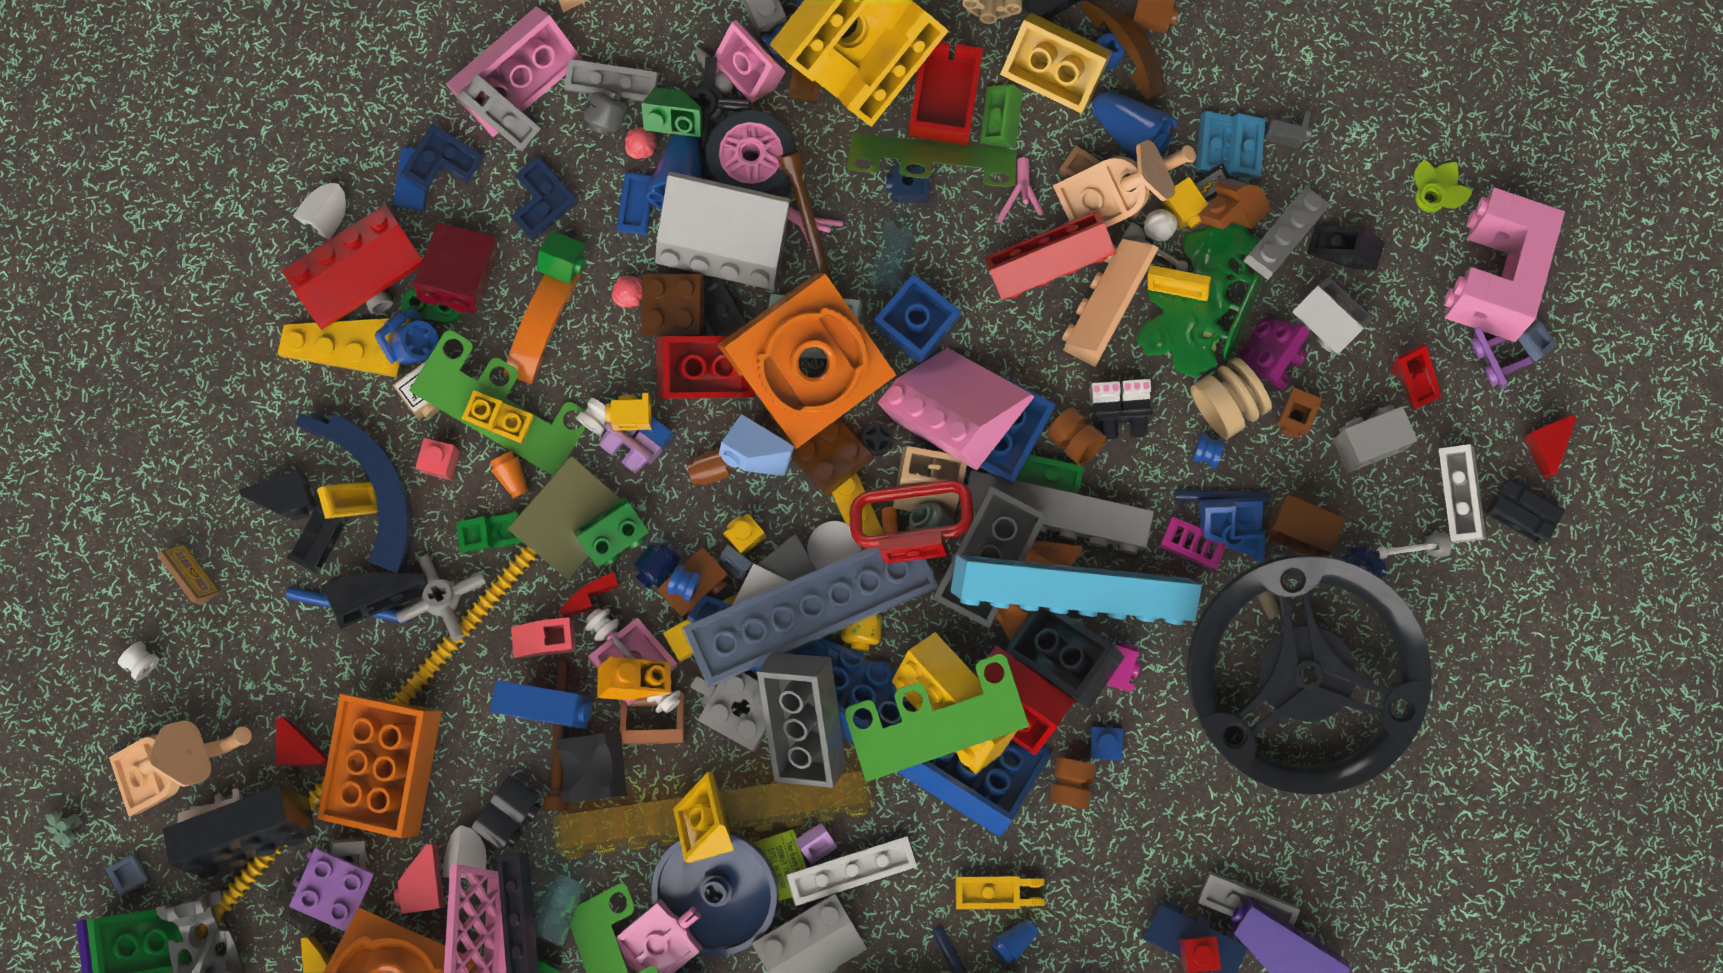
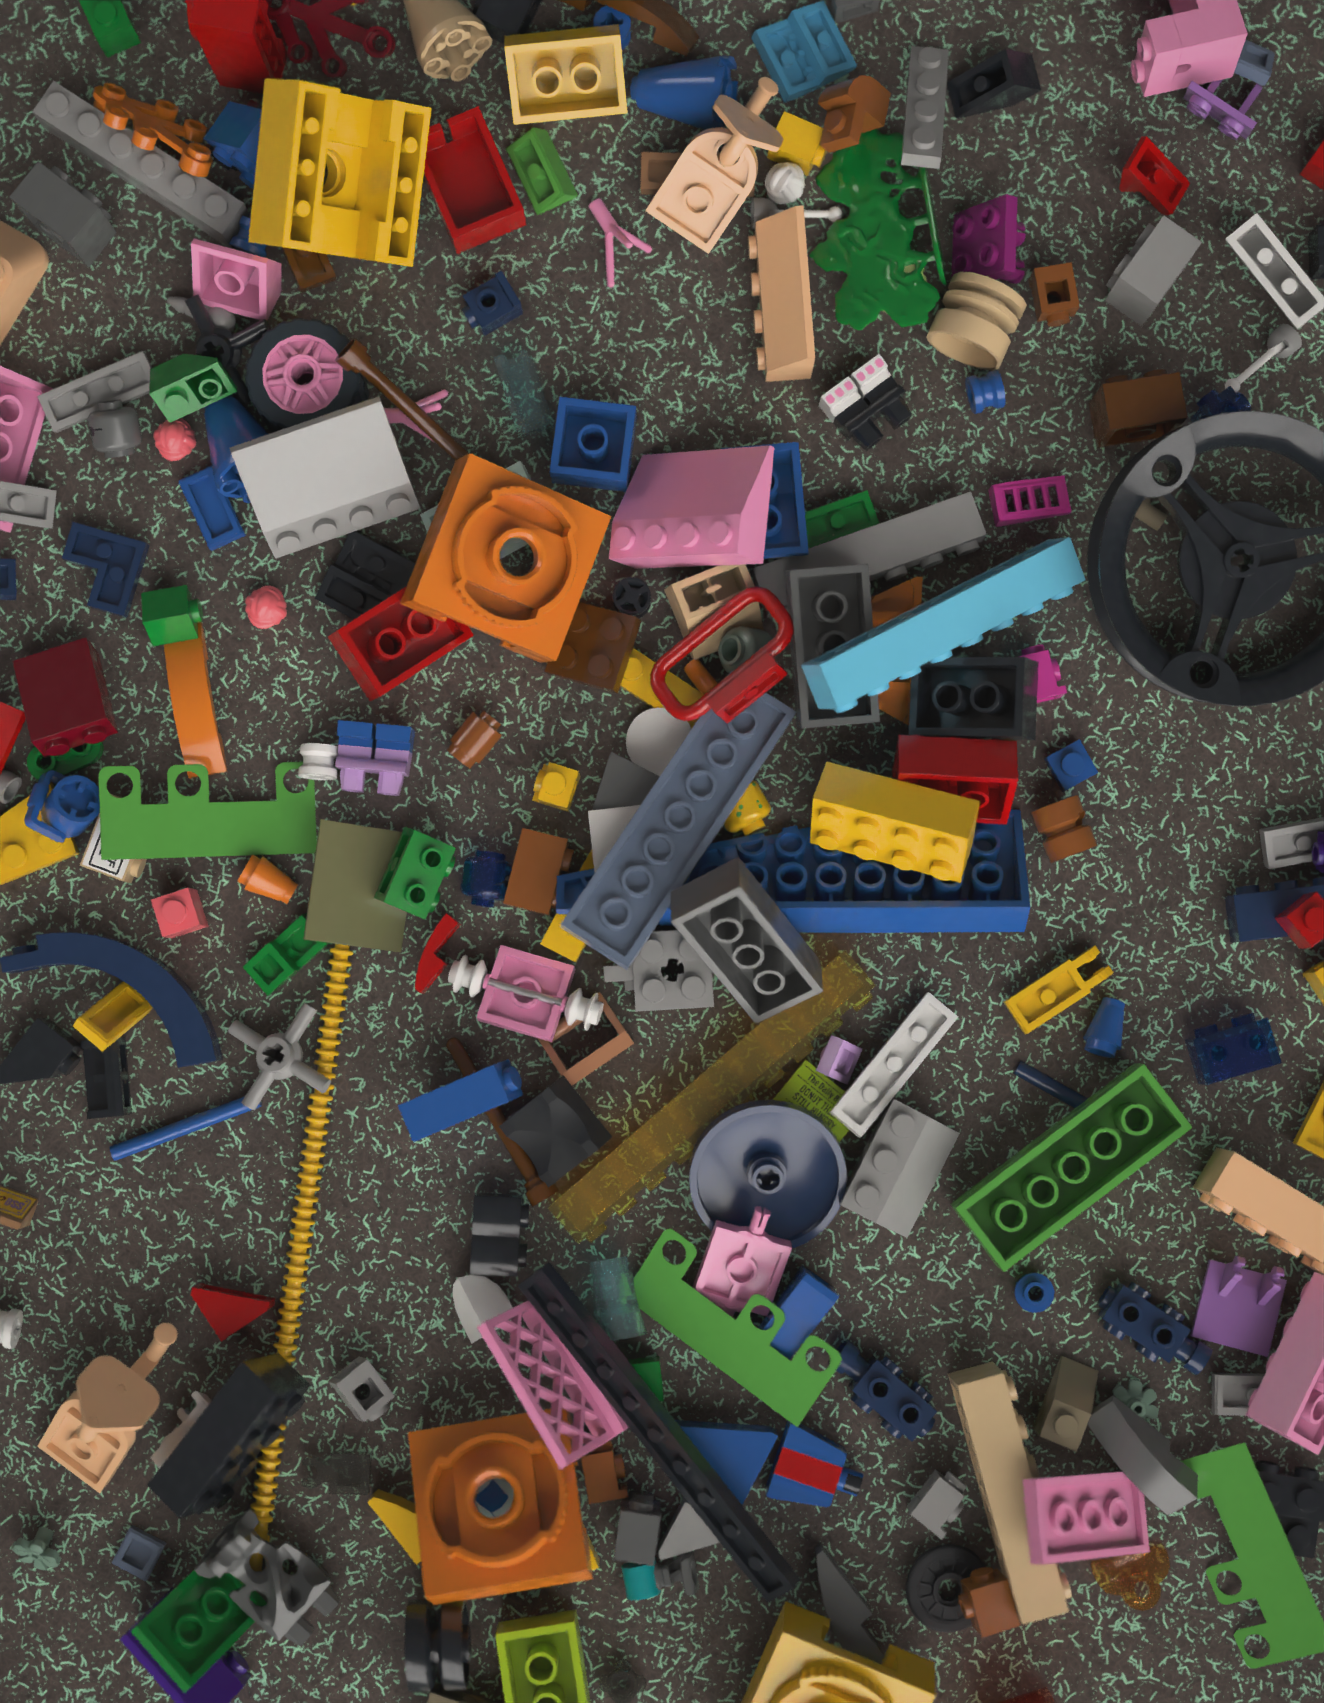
camera: 30 degrees left, 5 degrees up
(331, 888) = (365, 1431): medium lavender plate -> none
(367, 594) = (197, 1104): black slope -> none
(379, 765) = (331, 1272): orange slope -> none
(421, 883) = (455, 1365): coral slope -> none
(498, 417) = (215, 828): yellow slope -> none
(544, 638) = (416, 1029): coral slope -> none
(630, 413) = (354, 734): yellow brick -> none
(633, 678) = (540, 1011): light orange slope -> none
(672, 305) = (323, 591): reddish brown plate -> none
(684, 583) = (529, 877): blue wheel -> none
(702, 821) = (711, 1113): yellow slope -> none
(735, 563) = (566, 823): sand blue tile -> none
(755, 449) = (512, 688): light blue slope -> none
(928, 152) = (491, 256): bright green piece -> none
(936, 733) = (897, 867): bright green piece -> none
(1050, 255) = (691, 286): brick -> none
(1079, 439) = (840, 463): dark orange wheel -> none
(1179, 283) = (845, 231): yellow tile -> none
(1192, 495) = (1028, 432): dark blue bar -> none
(1206, 182) = (806, 103): sticker -> none
(1235, 524) = (1061, 452): blue slope -> none
(1332, 316) = (1028, 167): brick -> none

